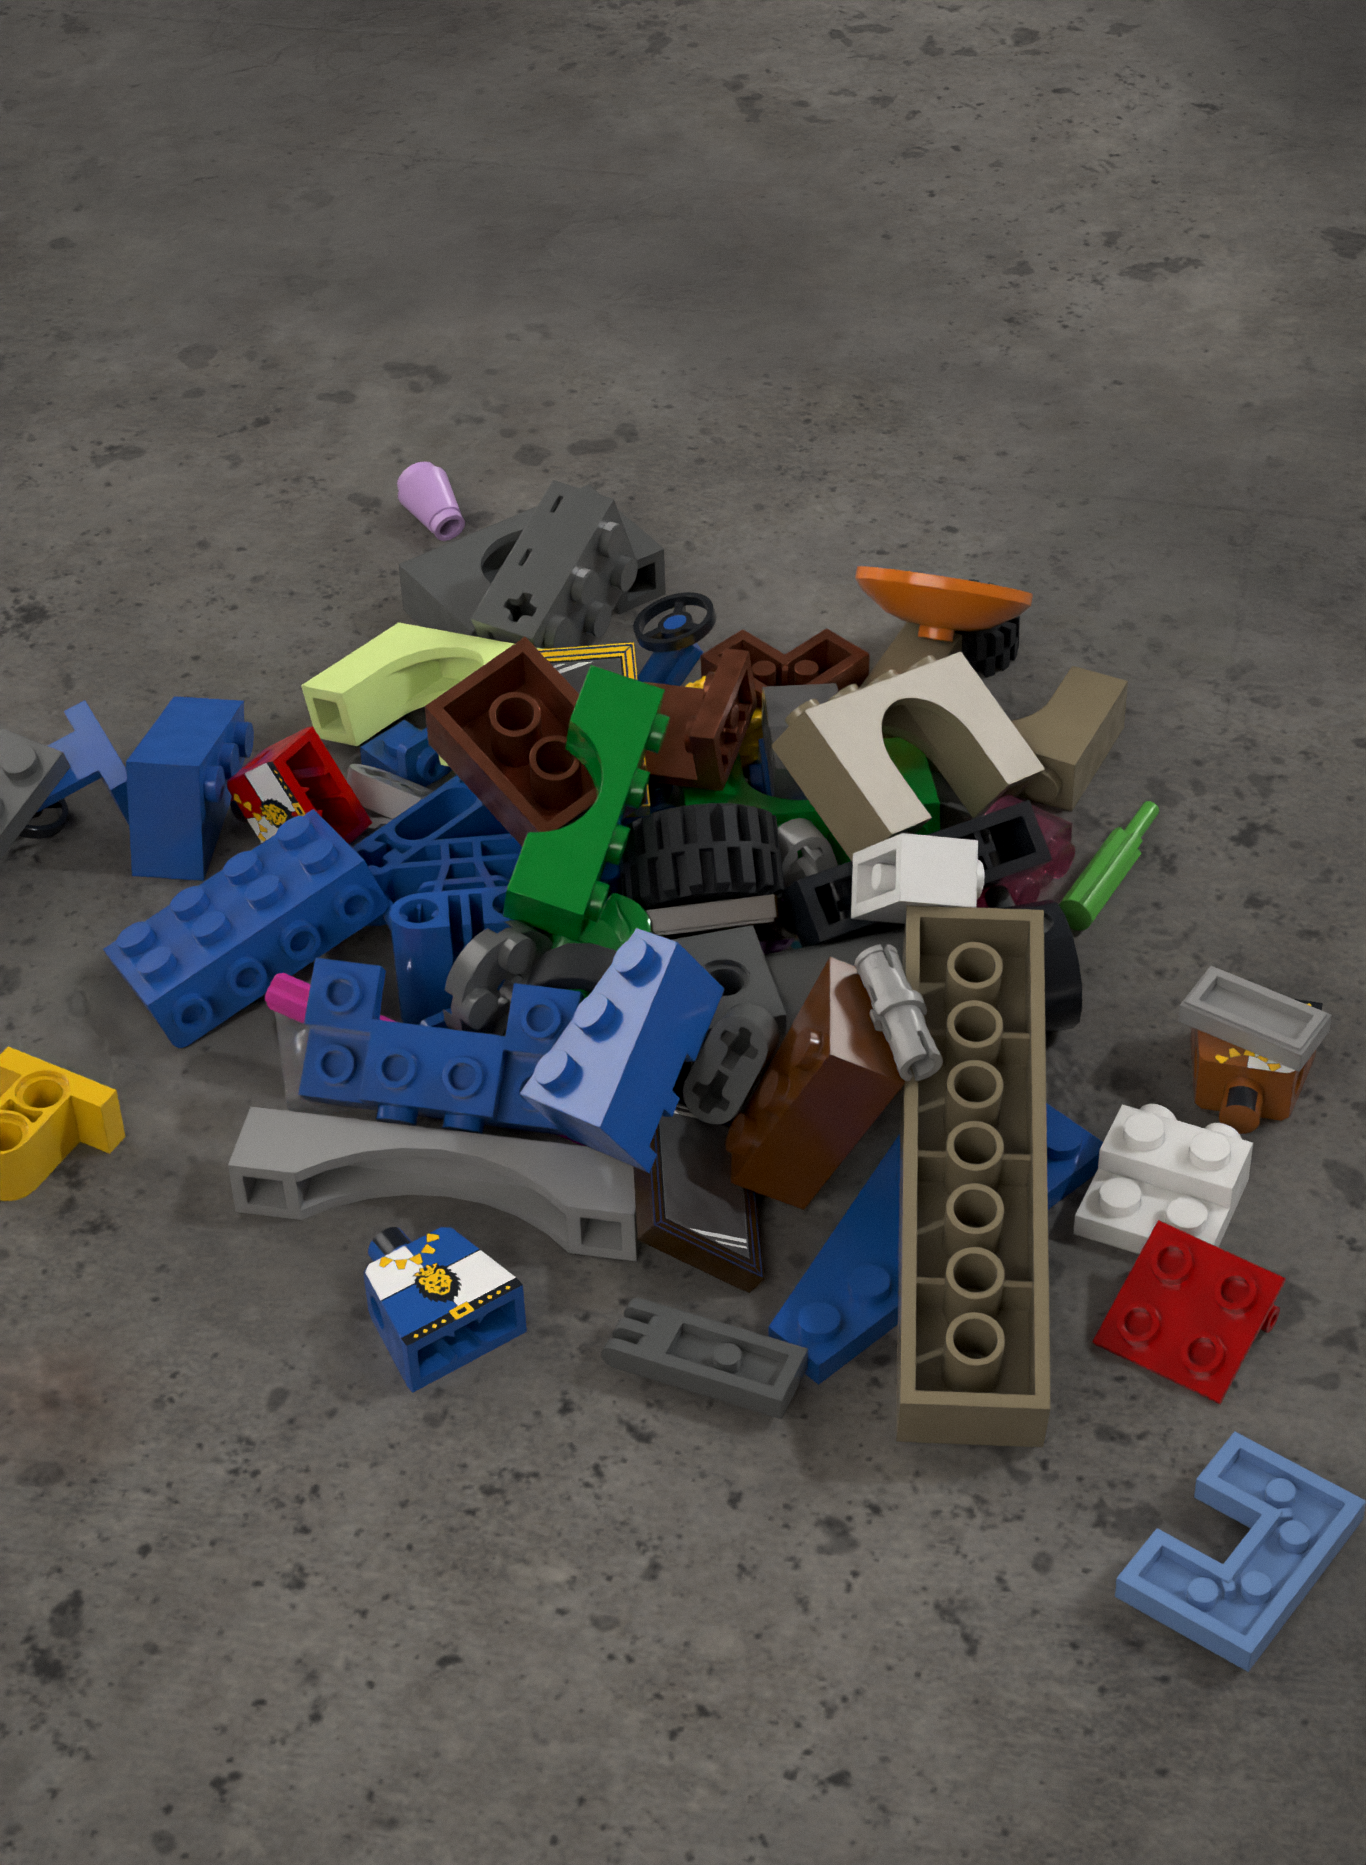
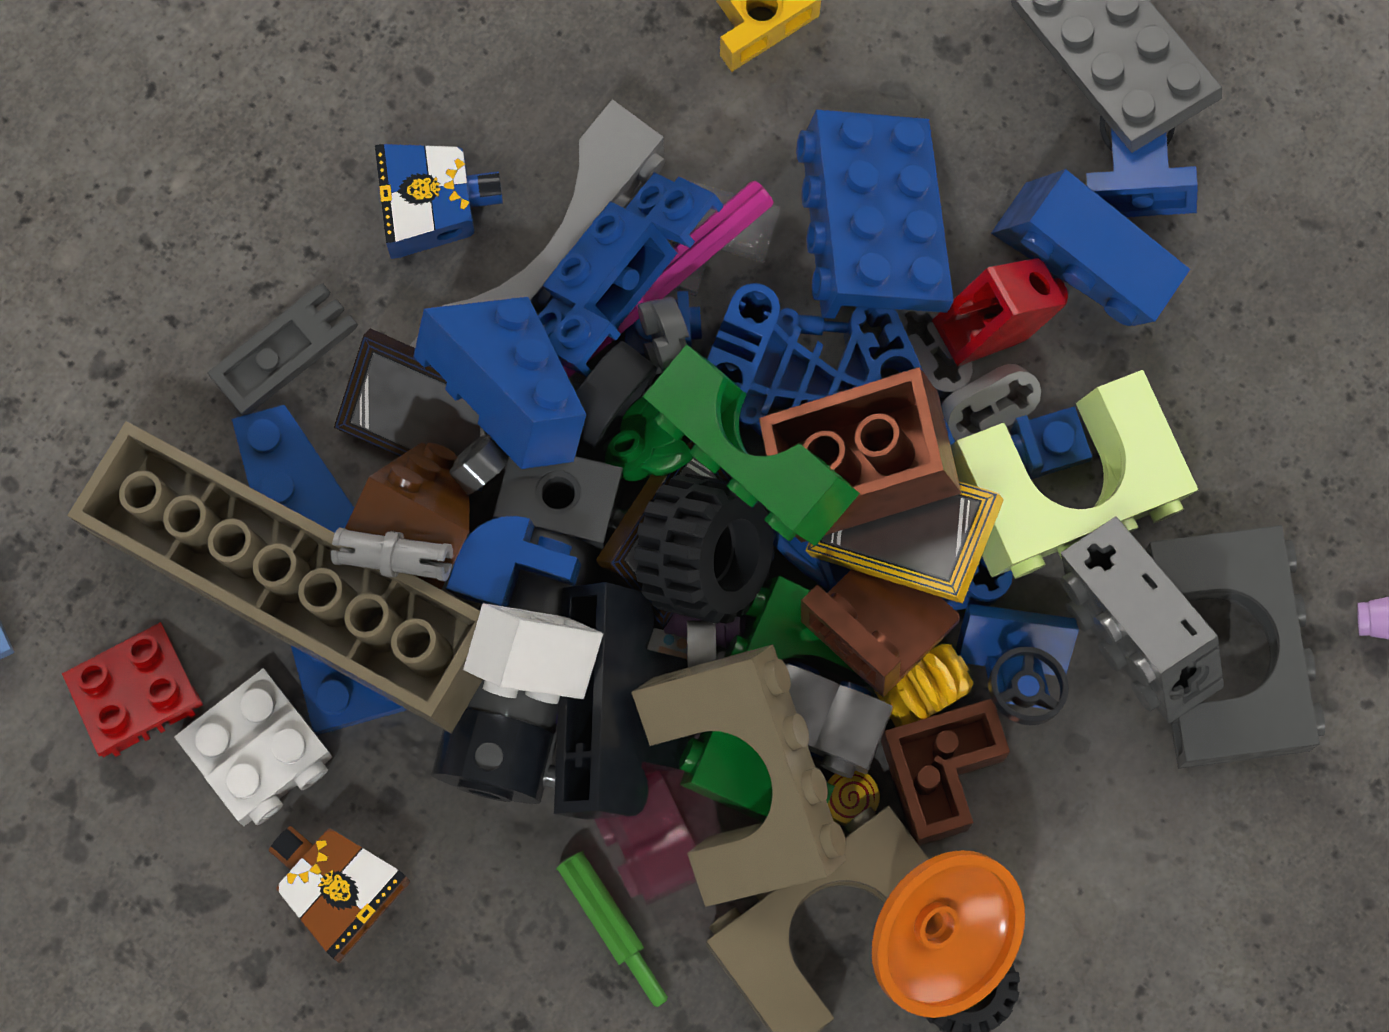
camera: 115 degrees right, 35 degrees up
(809, 940) = (498, 551): none -> blue brick
(1254, 1018) = (337, 888): light grey tile -> none

